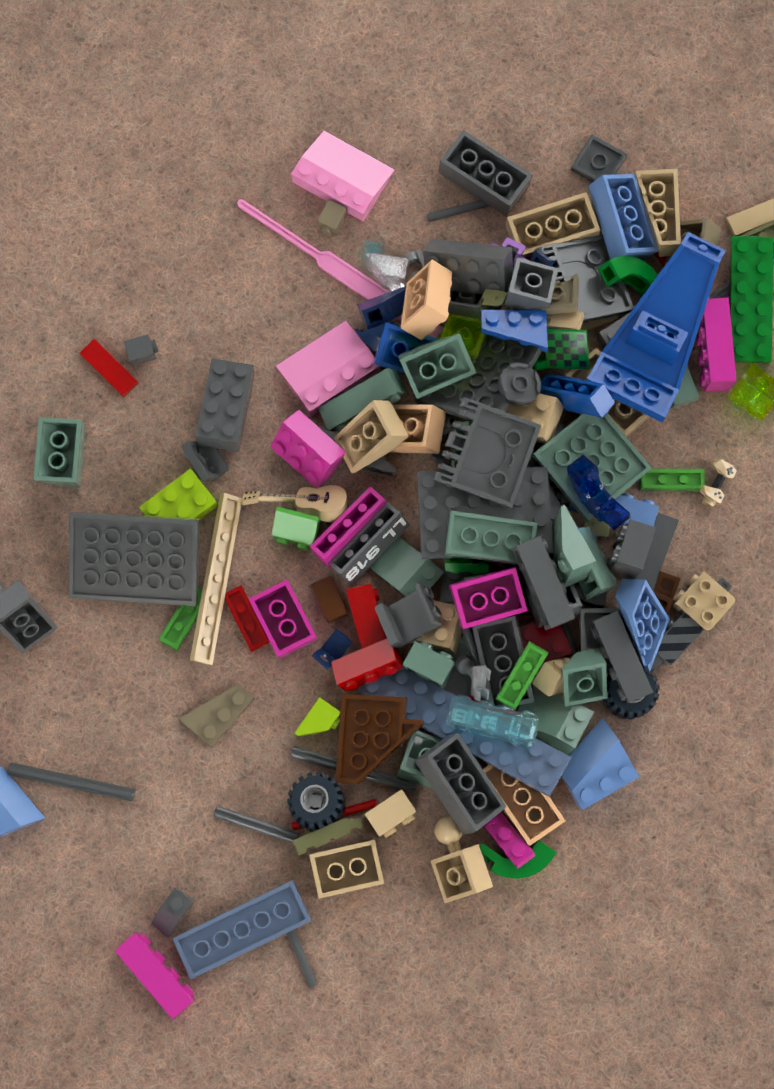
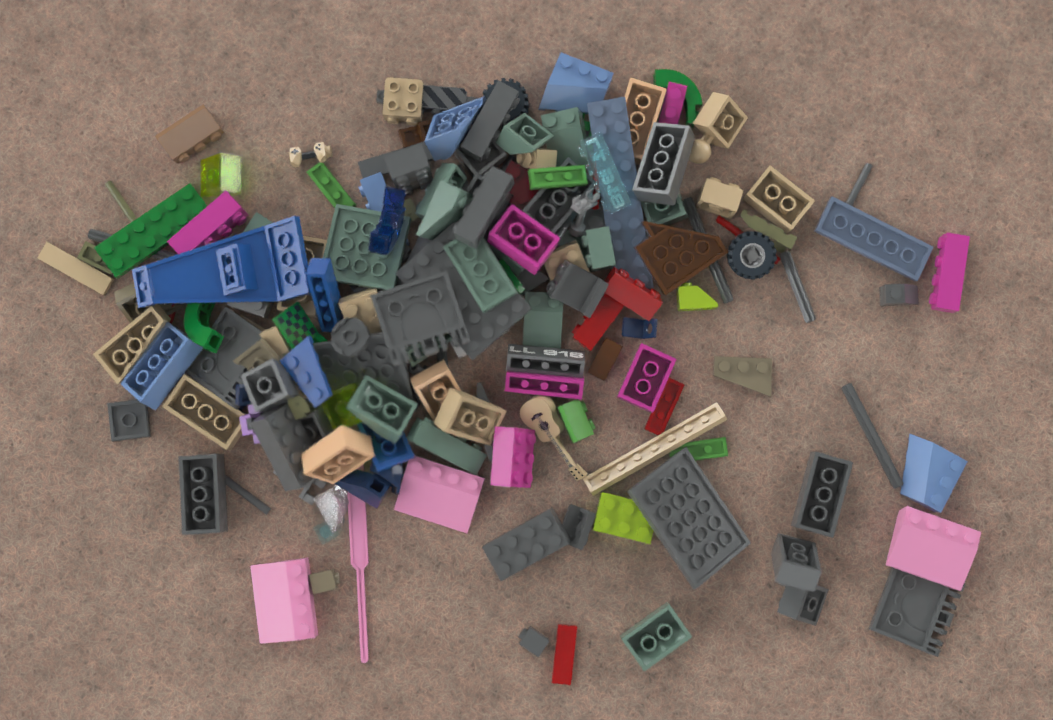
camera: 135 degrees left, 5 degrees up
(58, 691) = (822, 494): none -> dark grey brick

